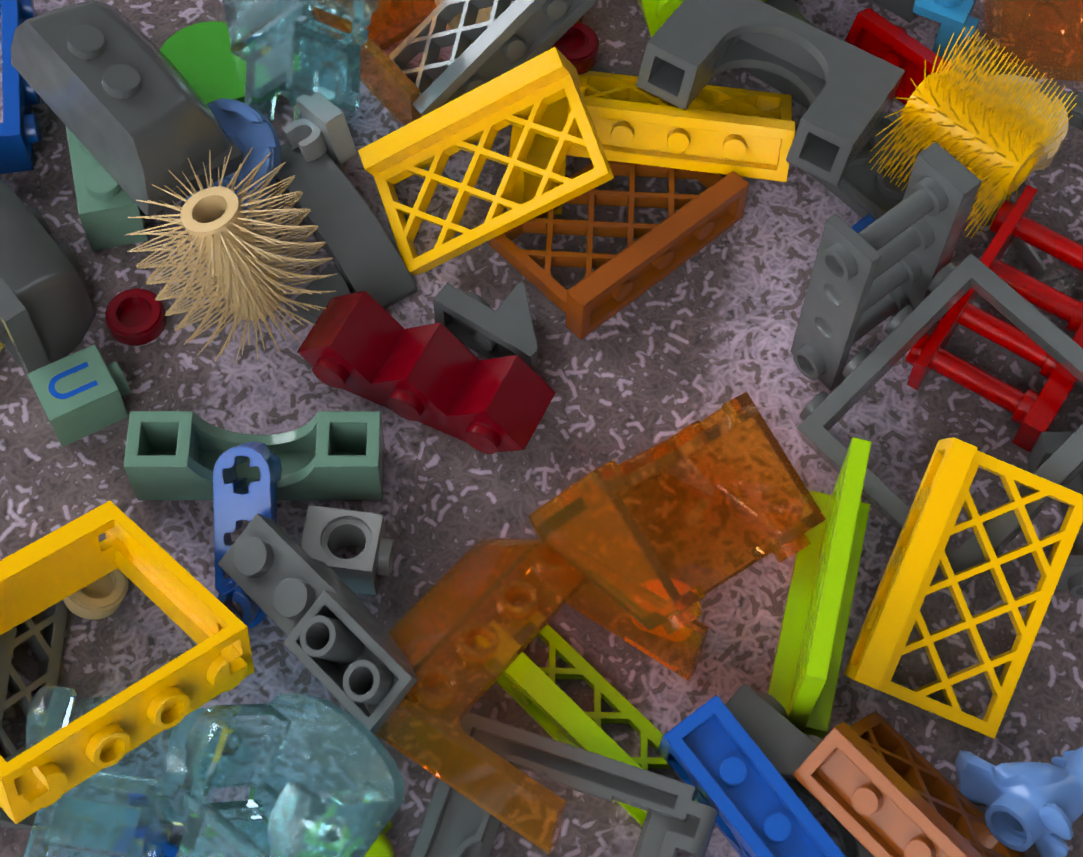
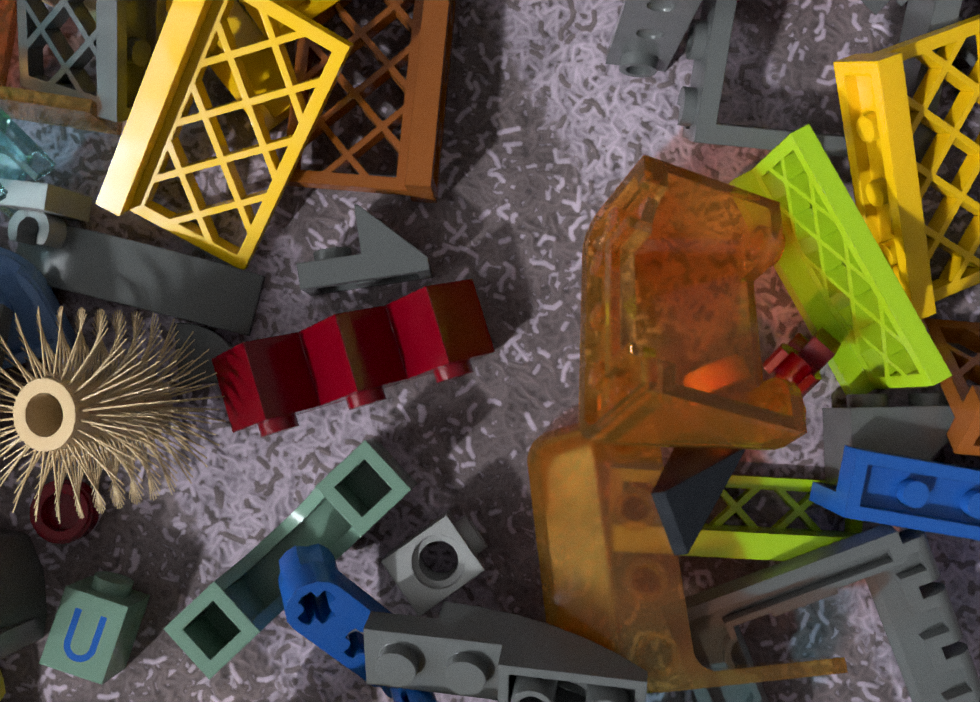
camera: 40 degrees left, 25 degrees up
(571, 629) = (690, 491): none -> black slope
(738, 641) = (803, 359): none -> dark red plate

